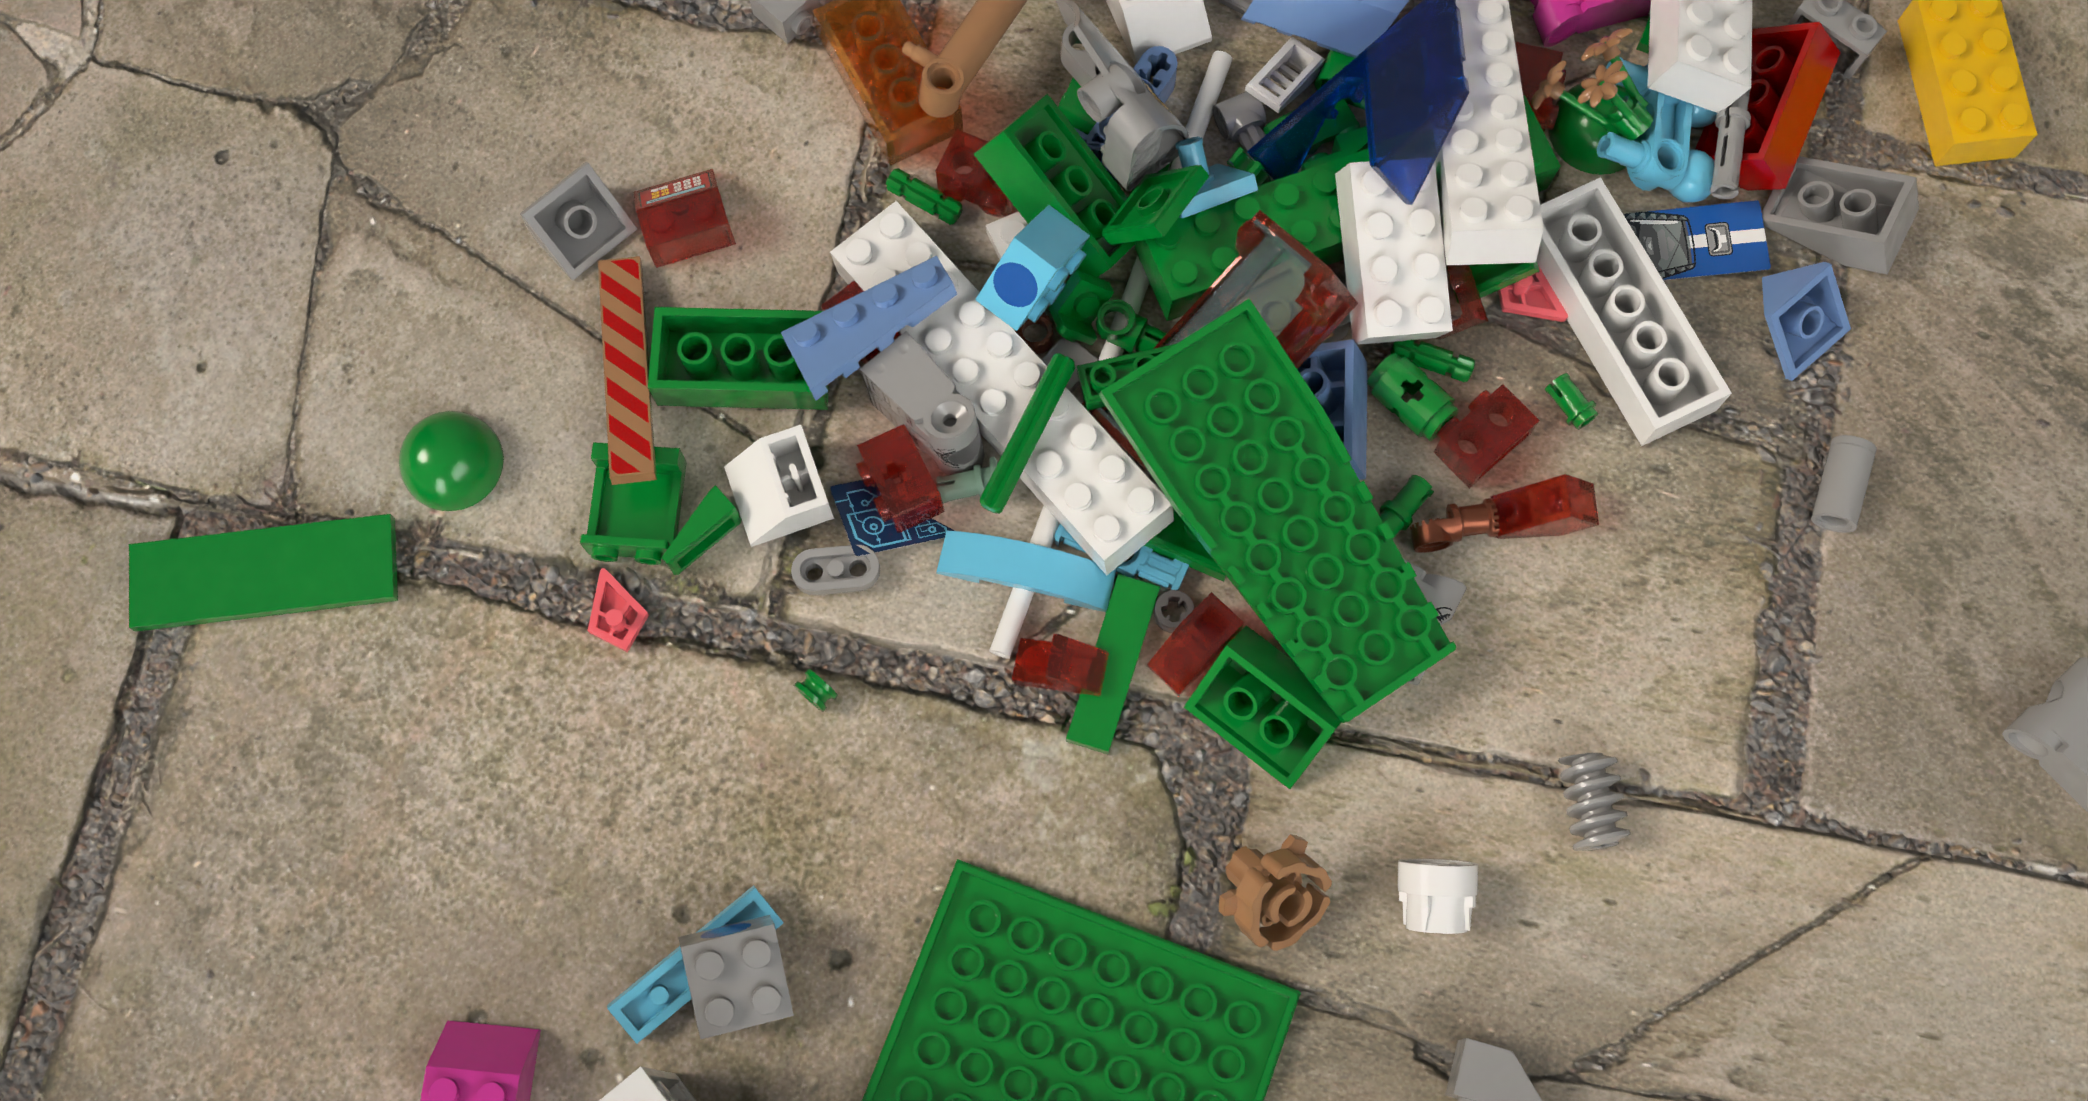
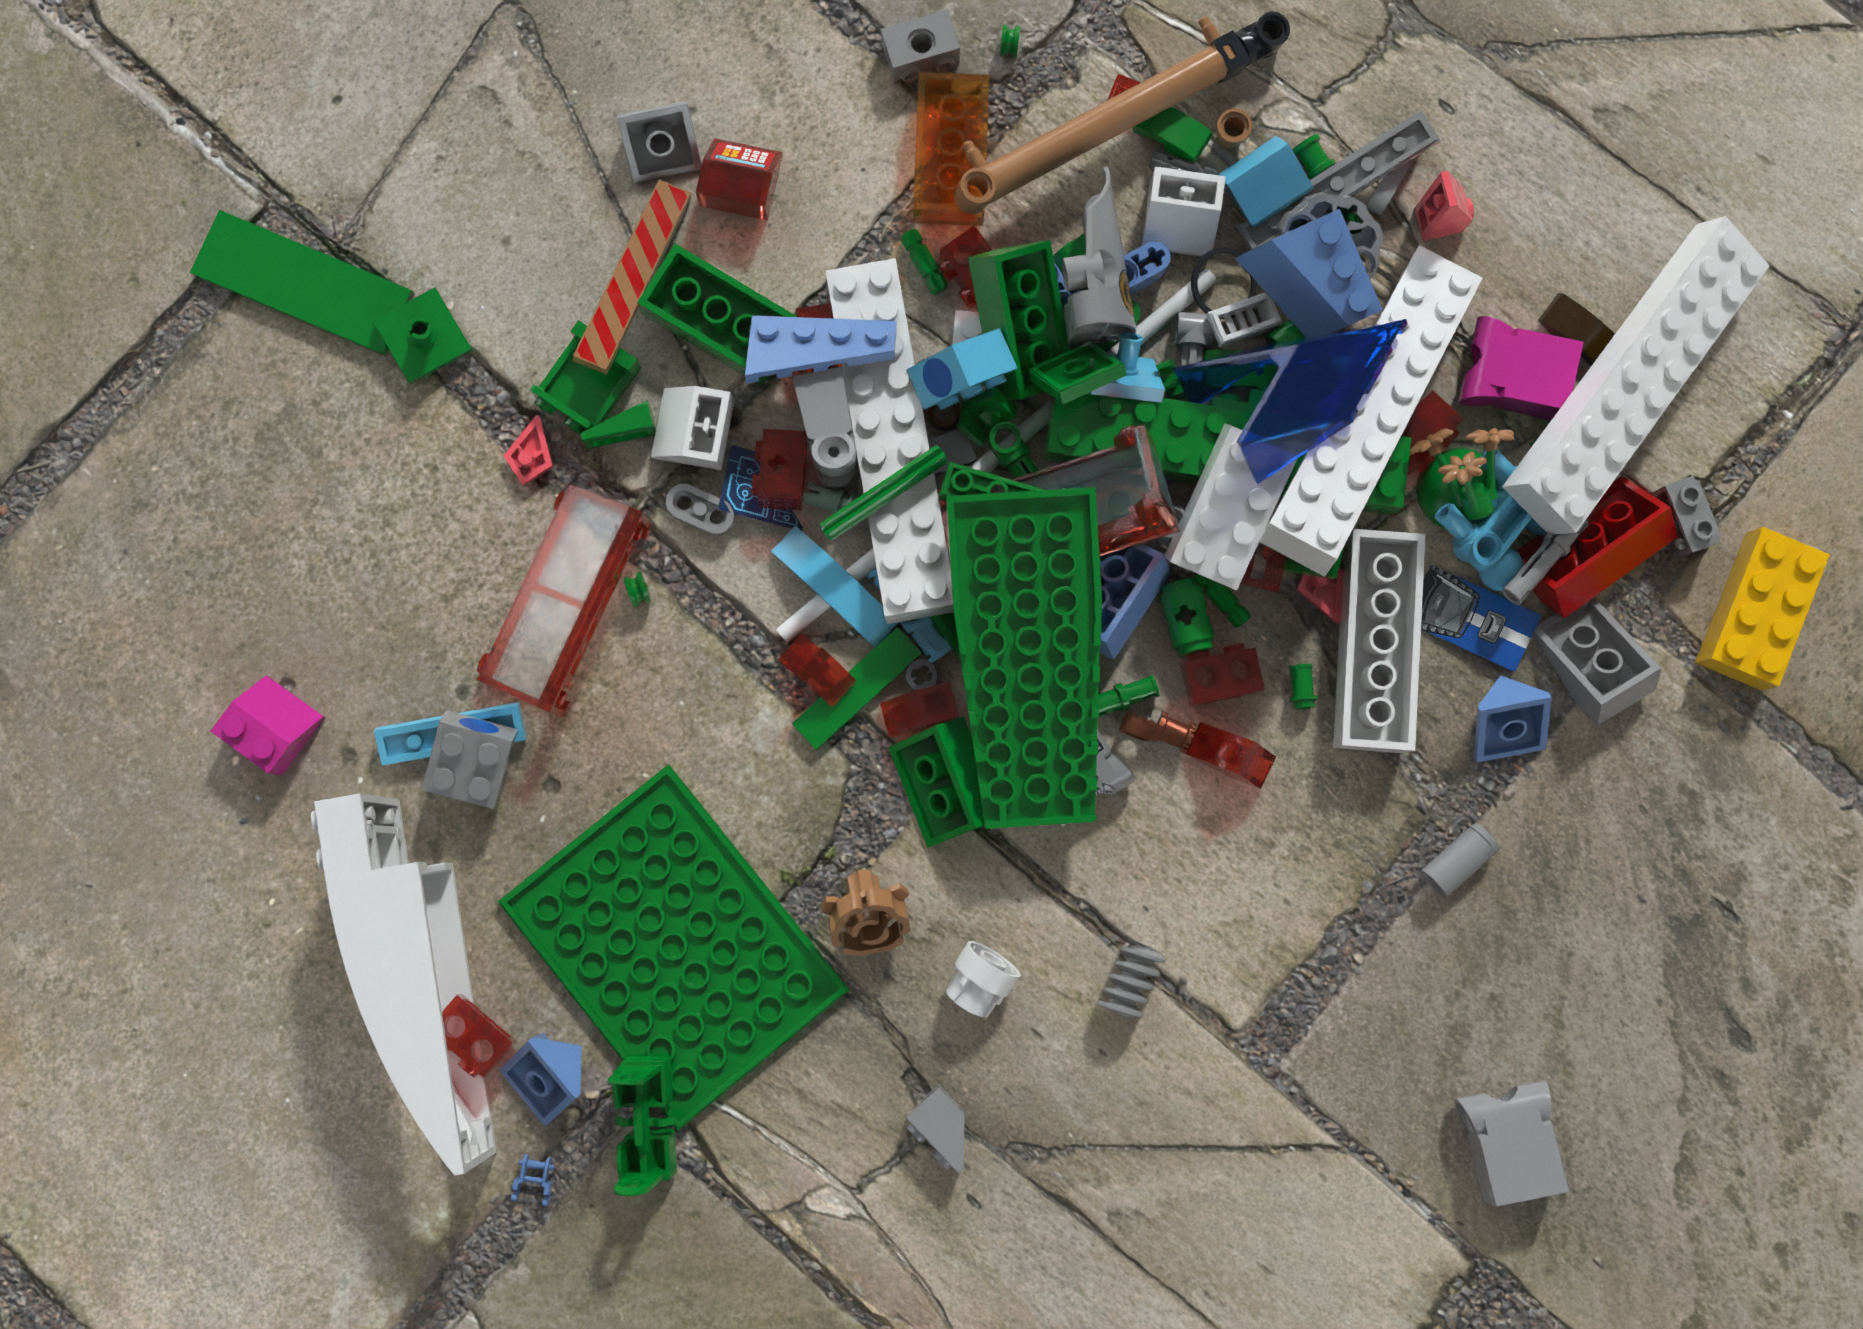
camera: 25 degrees right, 10 degrees up
(428, 554) = (422, 335): none -> green tile
(451, 460) = (475, 273): green piece -> none
(741, 745) = (563, 598): none -> windscreen
(1208, 56) = (1194, 278): none -> black piece

